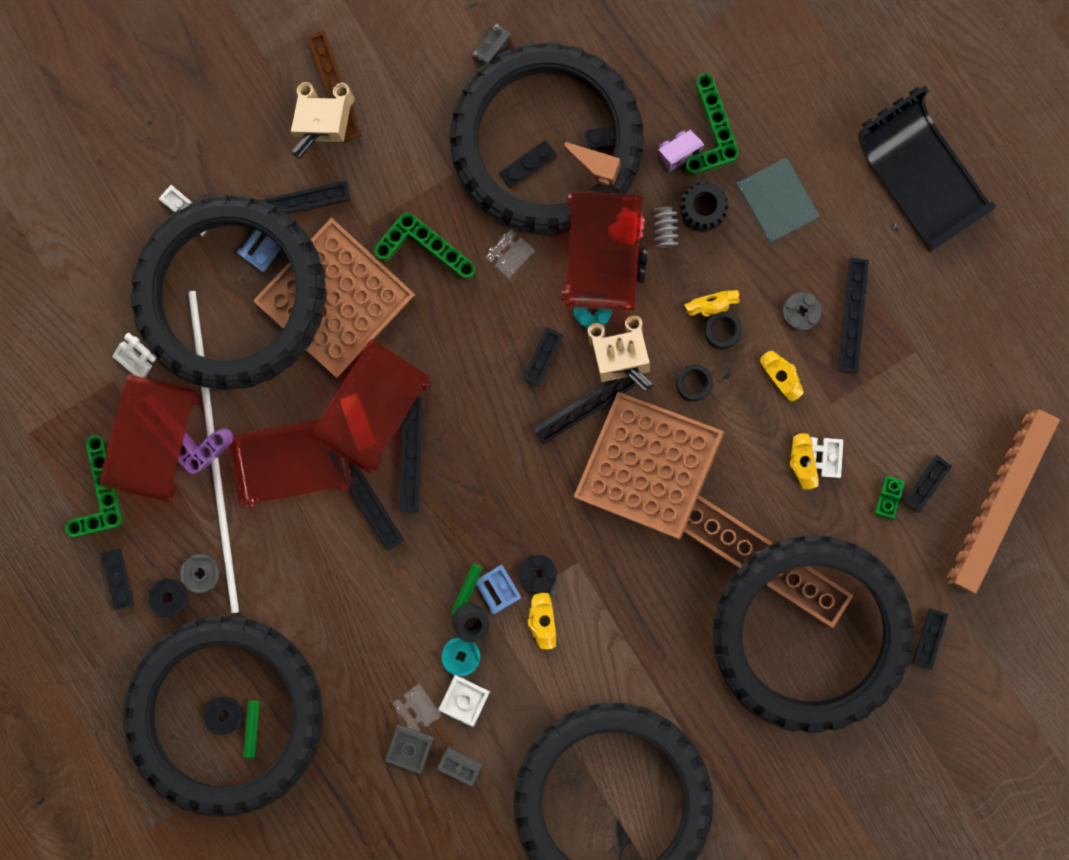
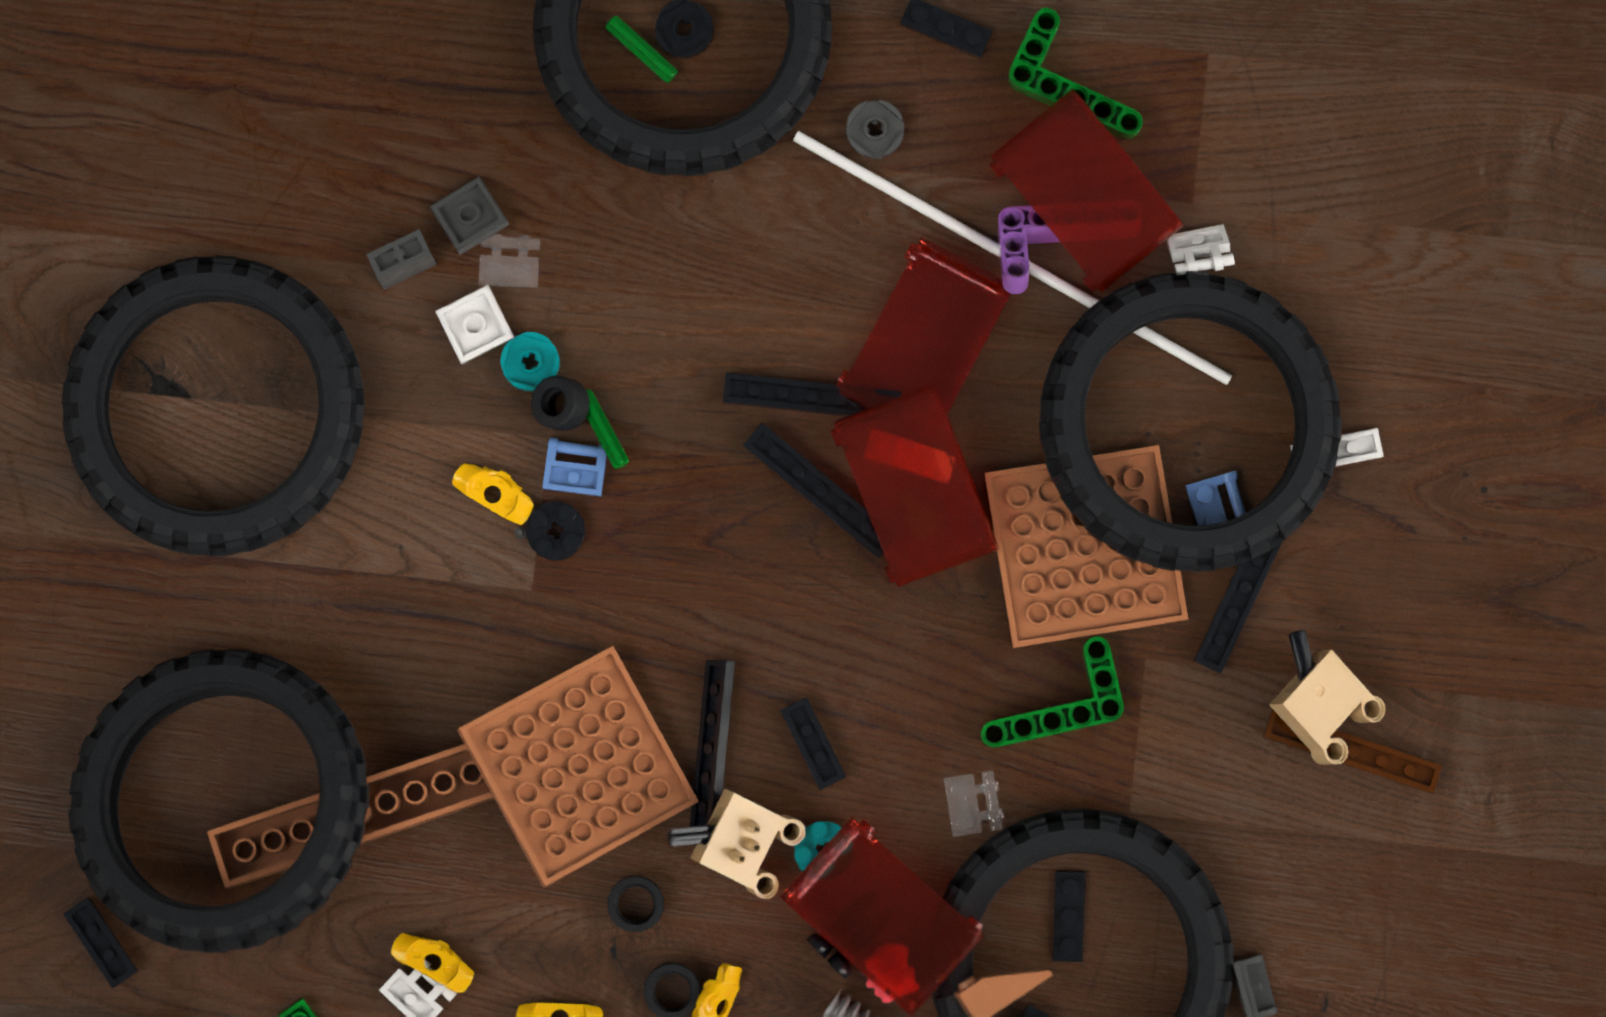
camera: 130 degrees right, 0 degrees up
(157, 597) = (865, 82): black plate -> none

